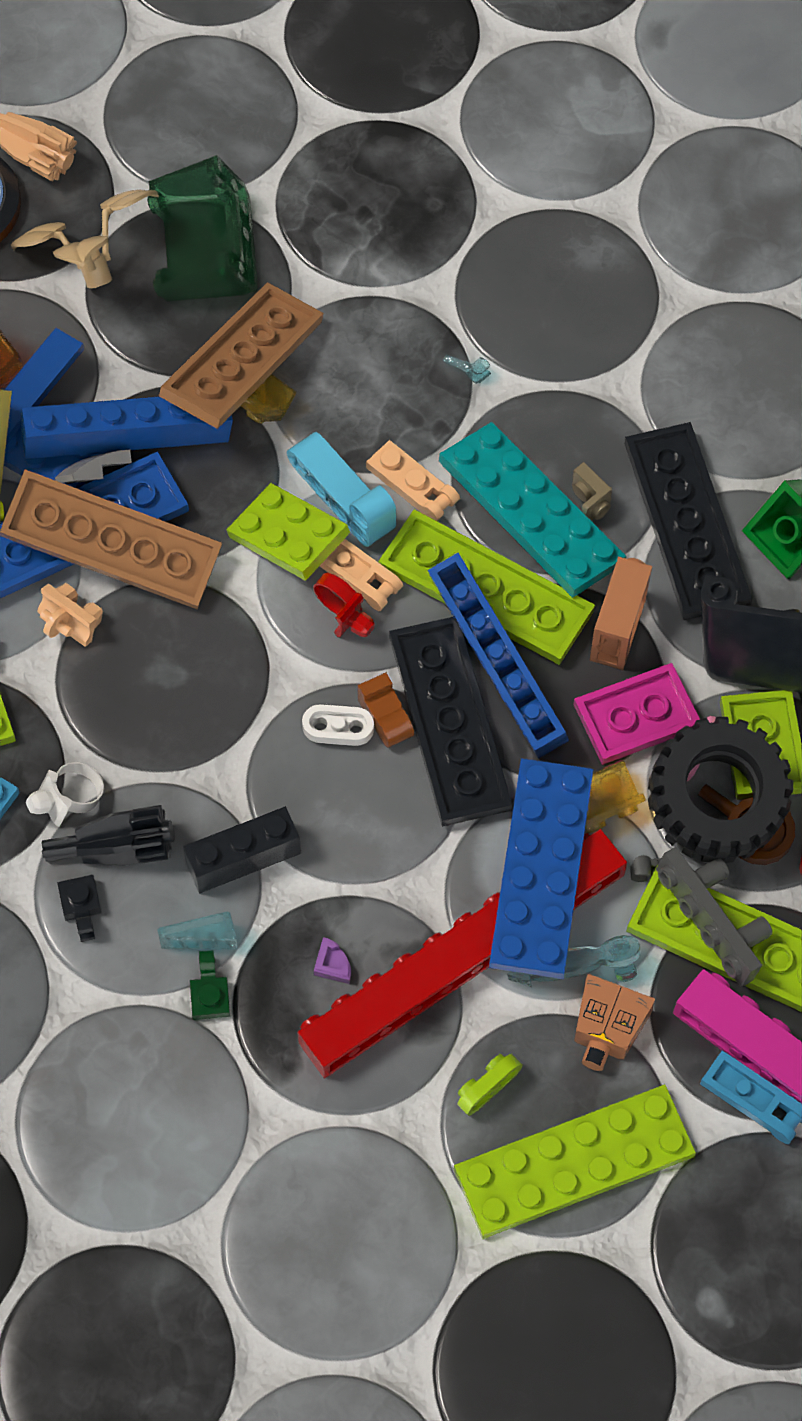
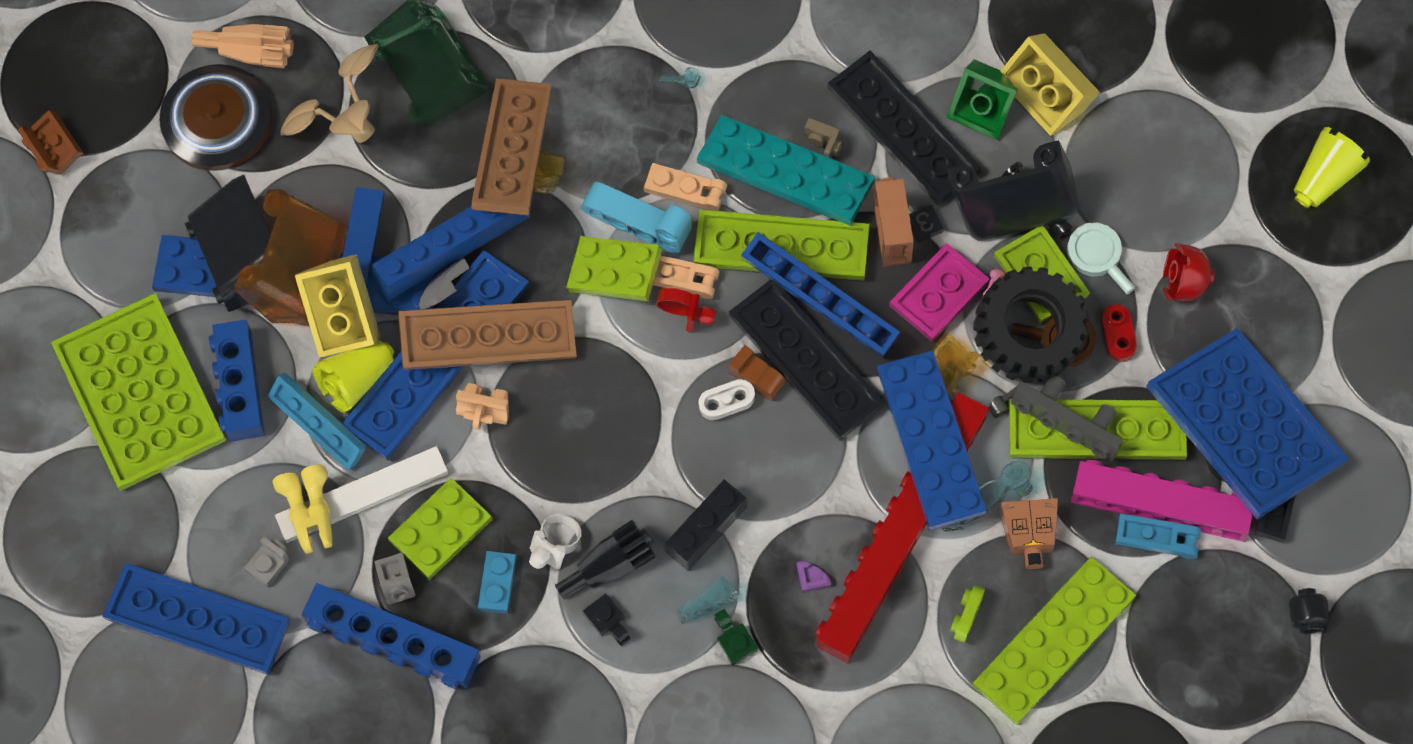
camera: 20 degrees left, 5 degrees up
(659, 633) = (925, 223): none -> black tile

